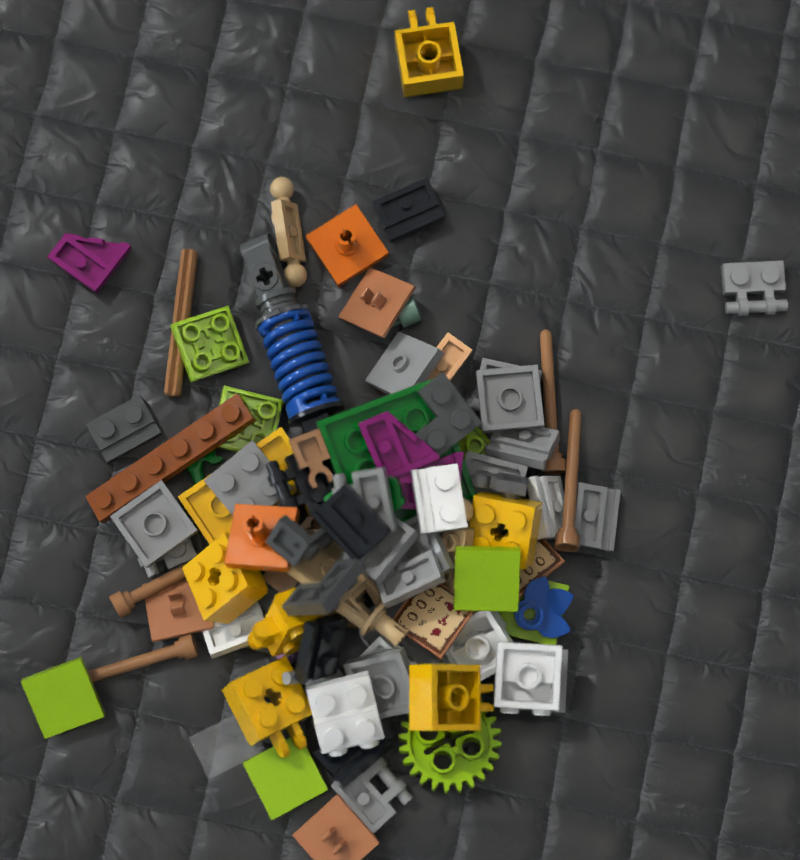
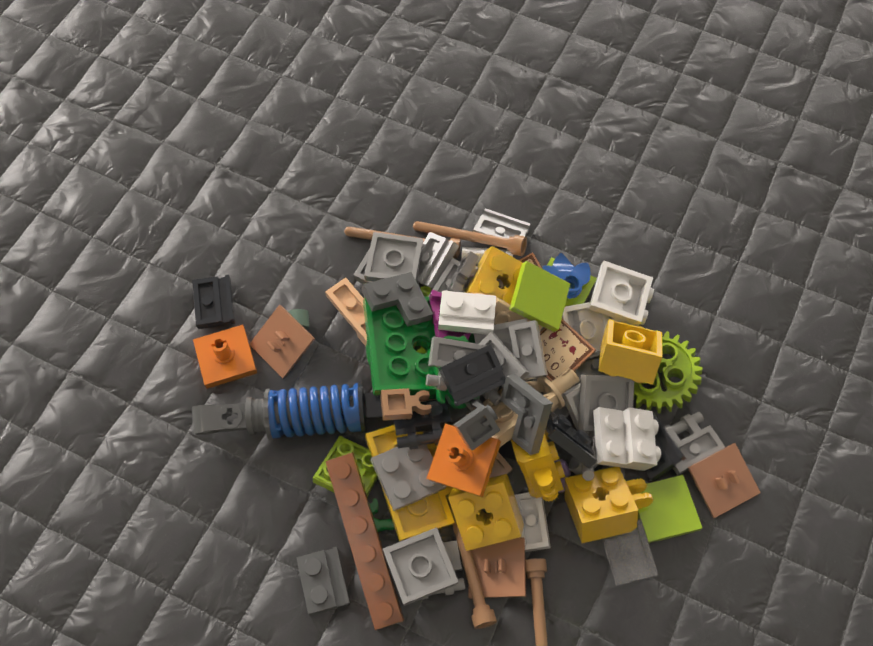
camera: 75 degrees left, 15 degrees down
(89, 259) = (154, 576): magenta wing -> none
(182, 311) = (243, 507): medium nougat axle -> none
(209, 344) = (270, 485): lime tile -> none
(288, 231) = (184, 397): tan plate -> none
(395, 445) = (411, 335): magenta wing -> none
(403, 364) = (342, 331): light grey plate -> none
(436, 41) = (92, 254): yellow hinge -> none
(754, 278) = (351, 92): light grey plate -> none

